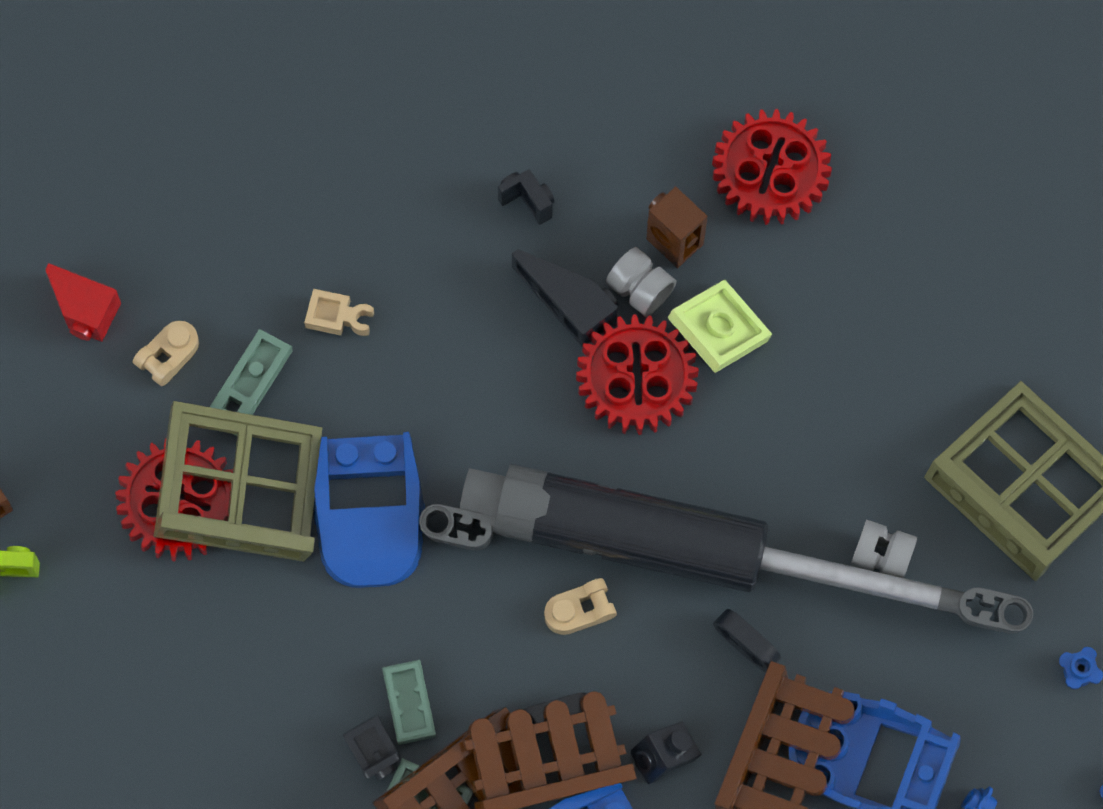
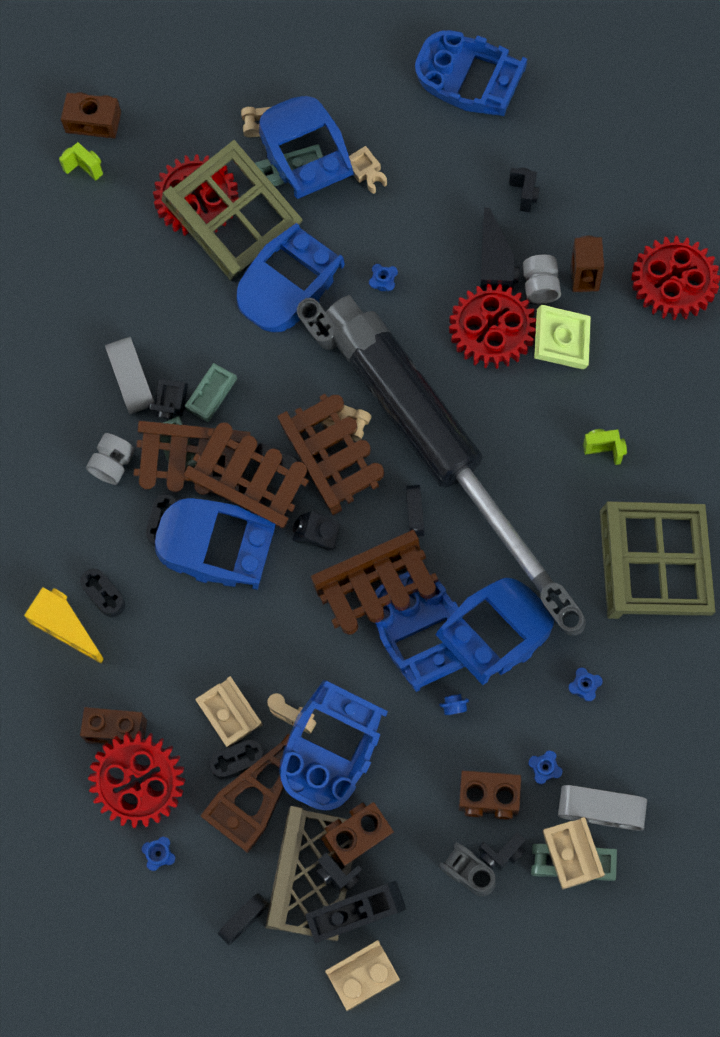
camera: 50 degrees right, 0 degrees up
(84, 303) = (243, 62): red slope -> none
(211, 324) = (294, 119): none -> blue slope
(302, 760) = (129, 375): none -> light grey beam
(311, 130) = (447, 60): none -> blue slope
(466, 428) = (383, 284): none -> blue plate
(581, 655) = (339, 461): none -> reddish brown fence
(860, 403) = (602, 441): none -> lime bracket
(897, 555) = (534, 527): light grey wheel -> none
(958, 649) = (518, 607): none -> blue slope

